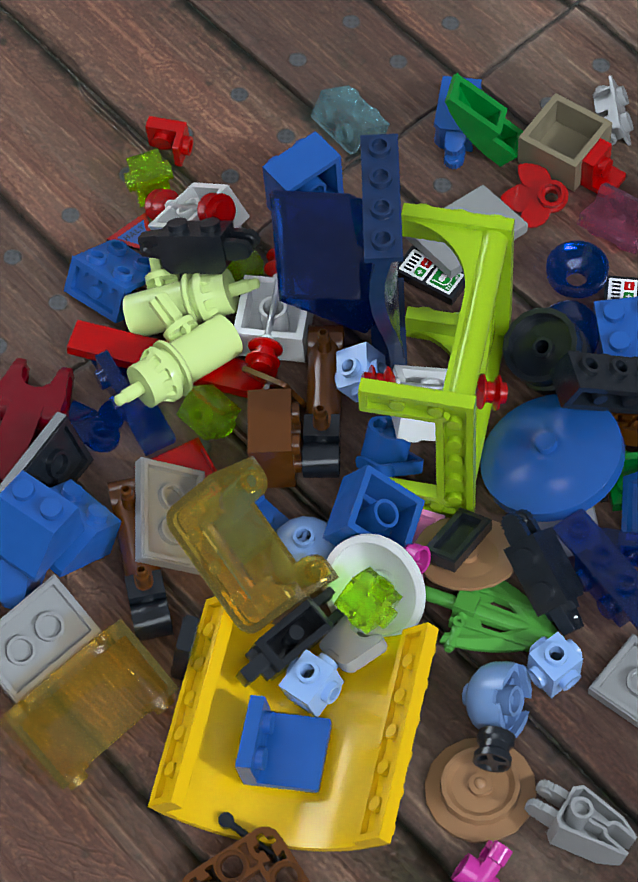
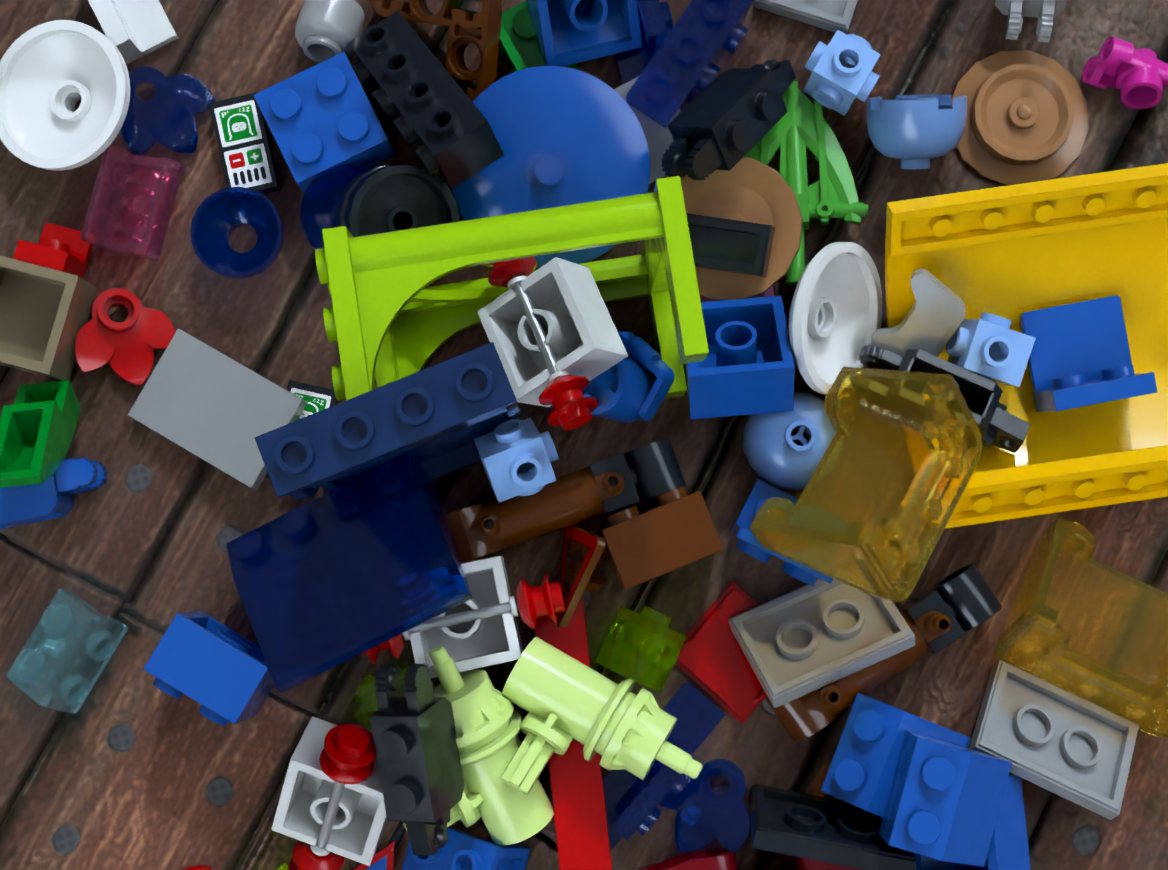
camera: 120 degrees left, 25 degrees up
(184, 646) = (1006, 530): black tile -> none
(369, 601) = (869, 312): clear neon green brick -> none
(420, 554) = (780, 277): dark pink hinge -> none
(494, 749) = (992, 99): black wheel -> none

